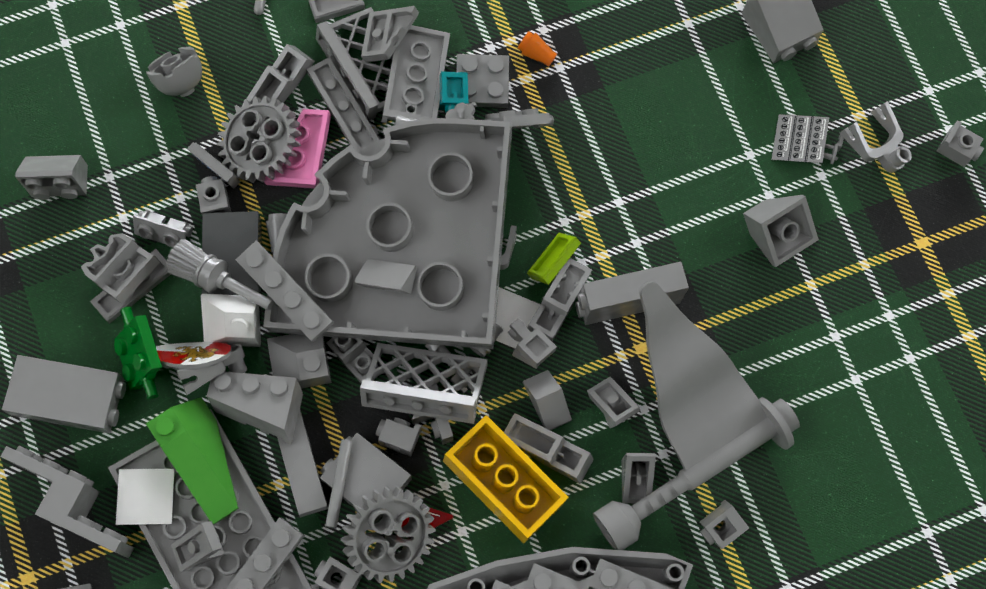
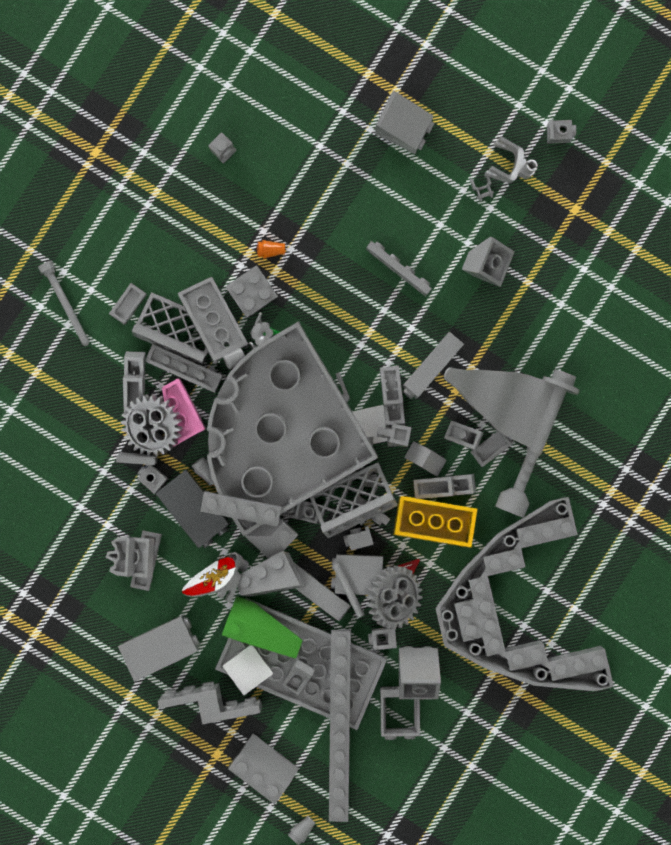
camera: 30 degrees left, 15 degrees up
(53, 176) = (50, 531): light grey slope -> none
(138, 353) = (182, 597): green plate -> none
(151, 226) = (128, 520): light grey hinge -> none
(176, 73) = (70, 419): light grey cylinder -> none
(209, 272) = (189, 527): light grey piece -> none
(230, 320) = (219, 542): white slope -> none
(386, 31) = (175, 305): light grey wing -> none
(387, 276) = (290, 458): light grey slope -> none
(453, 89) = (242, 314): teal bracket -> none
(522, 118) = (292, 311): light grey plate -> none
(553, 258) = (372, 373): lime tile -> none
(636, 441) = (491, 448): none -> light grey tile
(637, 476) = (505, 468): light grey slope -> none
(666, 157) = (405, 273): none -> light grey plate
(731, 529) = (569, 461): light grey brick -> none
(800, 138) = (463, 194): light grey sticker -> none

